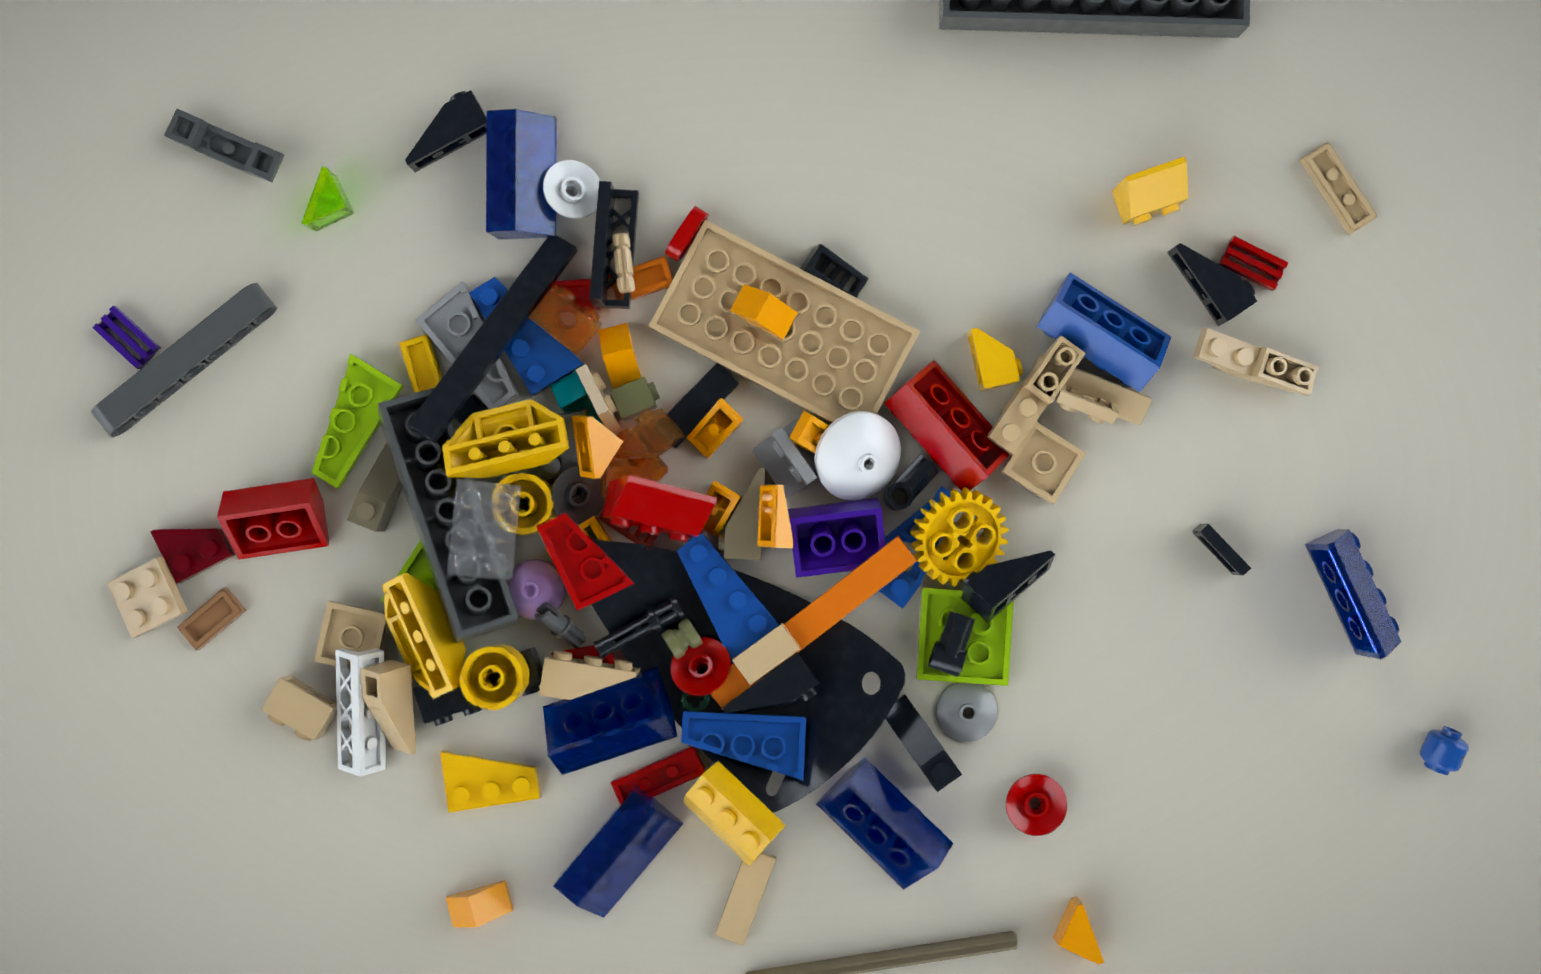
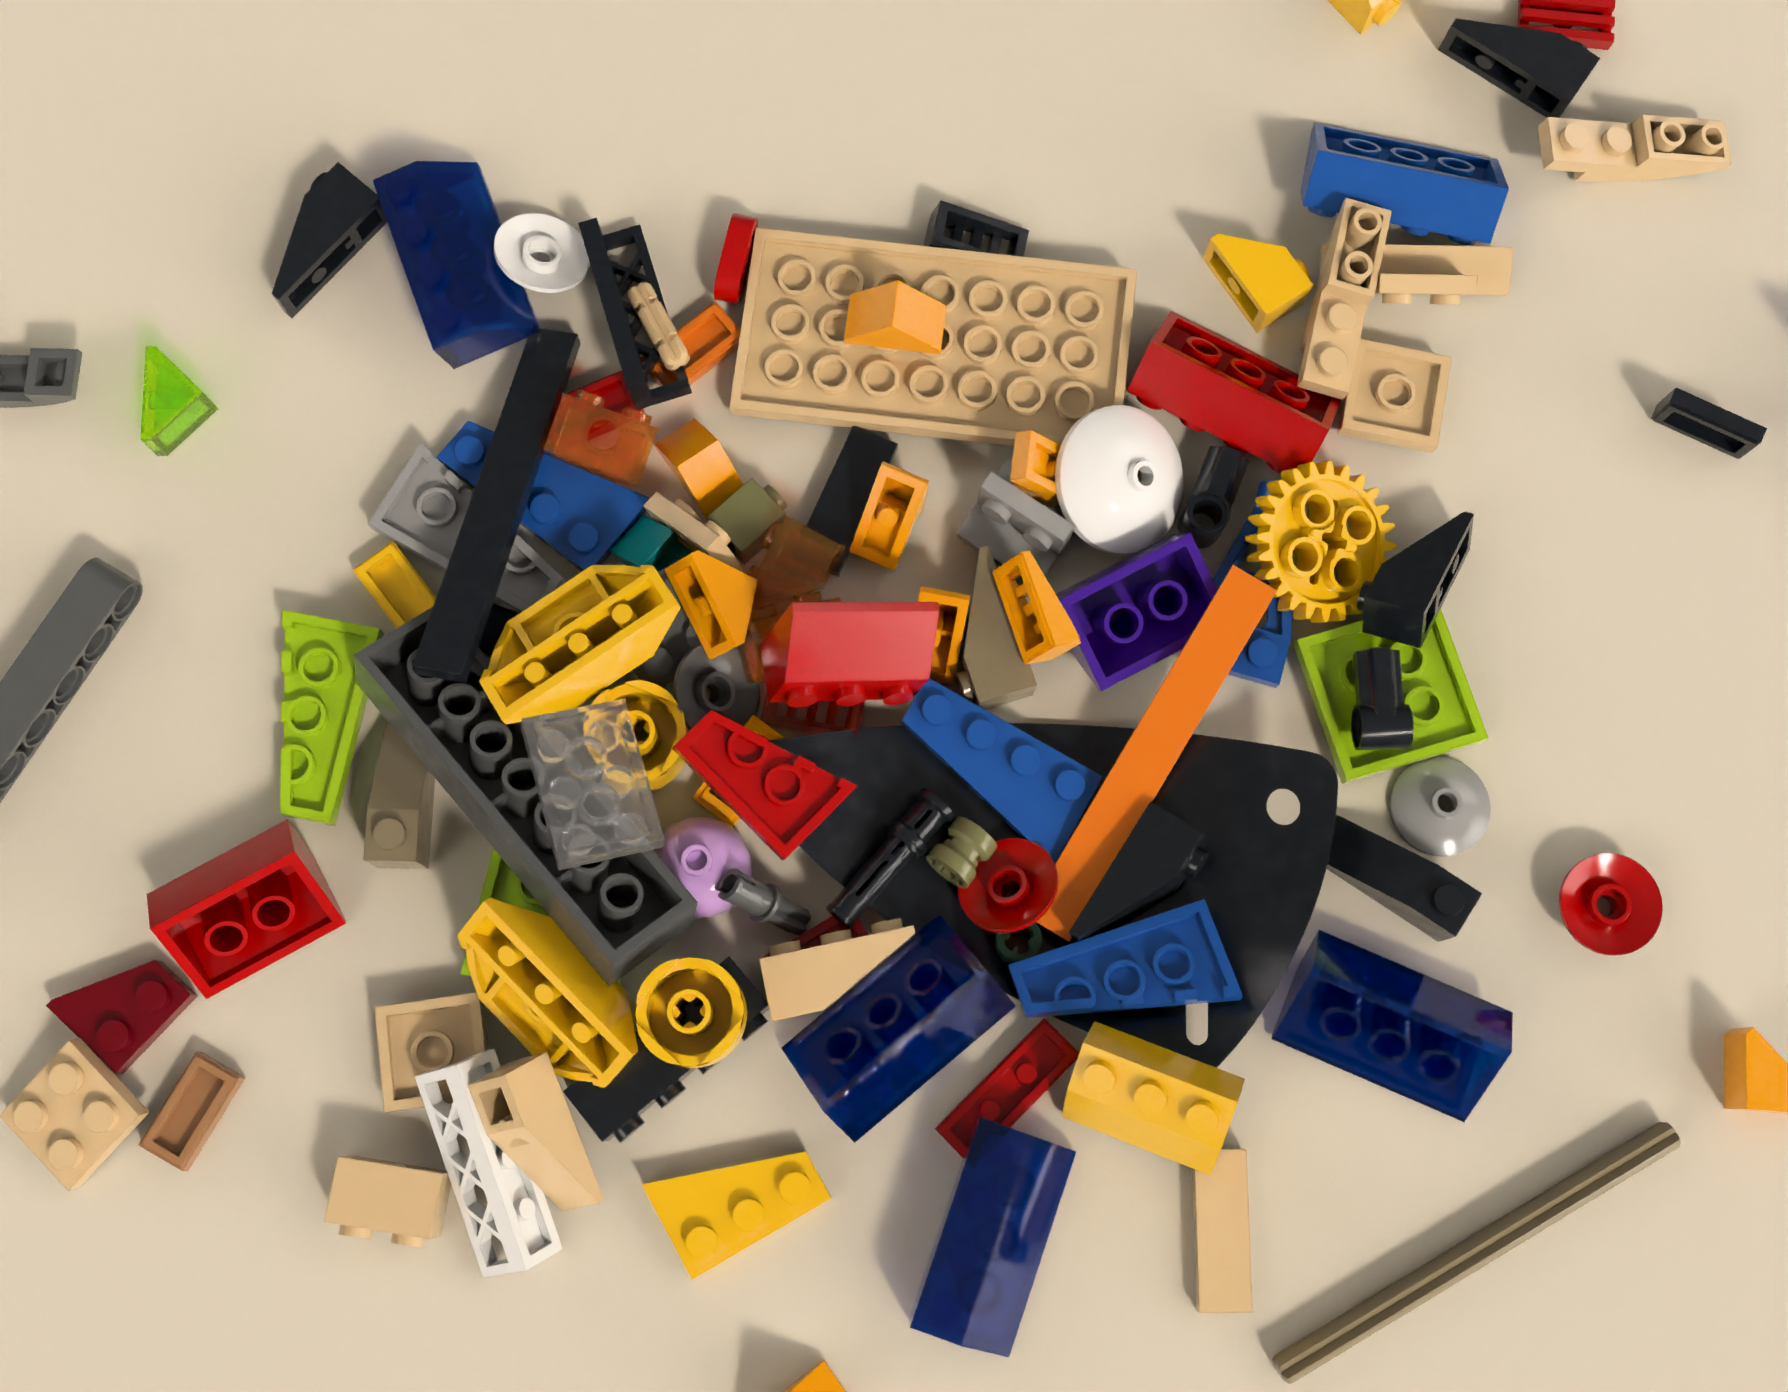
camera: 25 degrees left, 10 degrees down
(766, 653) = (1103, 822): tan tile -> none

